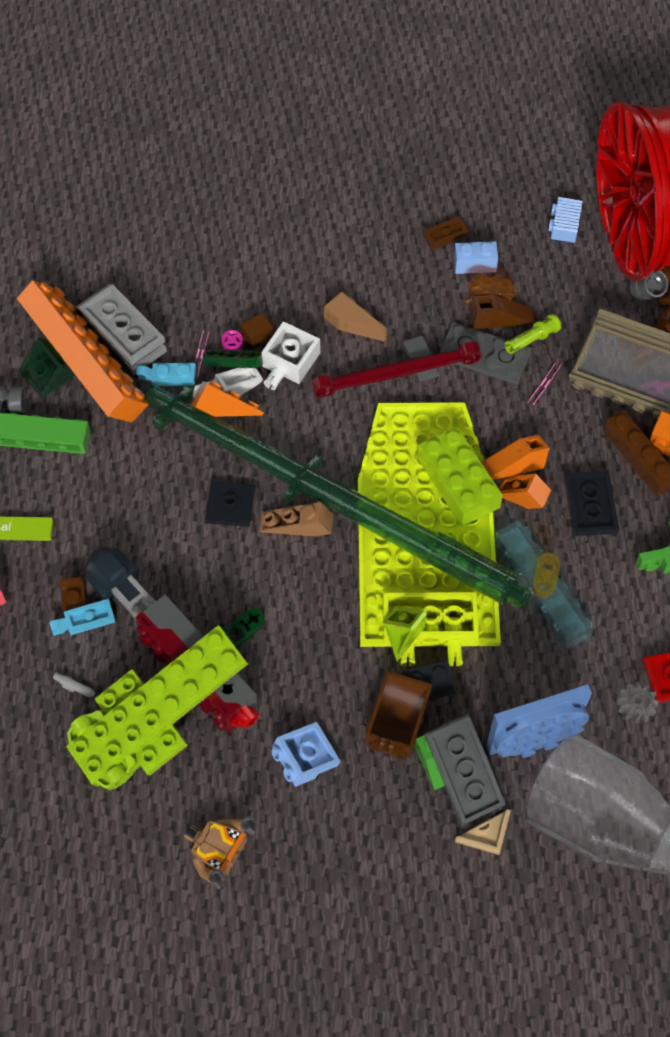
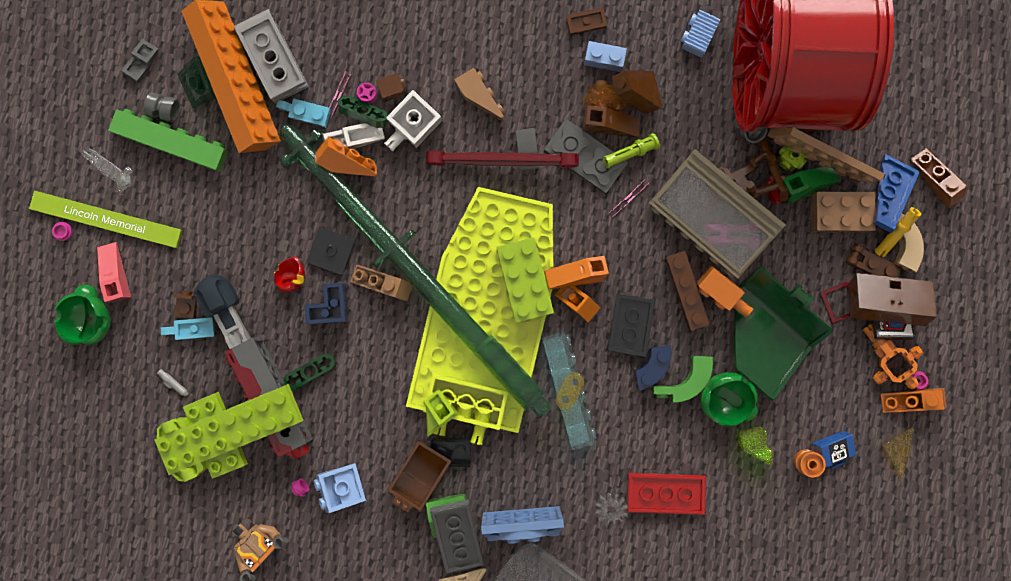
camera: 15 degrees right, 25 degrees up
(189, 534) = (289, 275): none -> red hair
(246, 559) = (334, 306): none -> dark blue brick
(255, 767) = (300, 488): none -> dark pink plate
(520, 275) = (638, 89): none -> reddish brown slope
(633, 535) = (654, 368): none -> dark blue brick

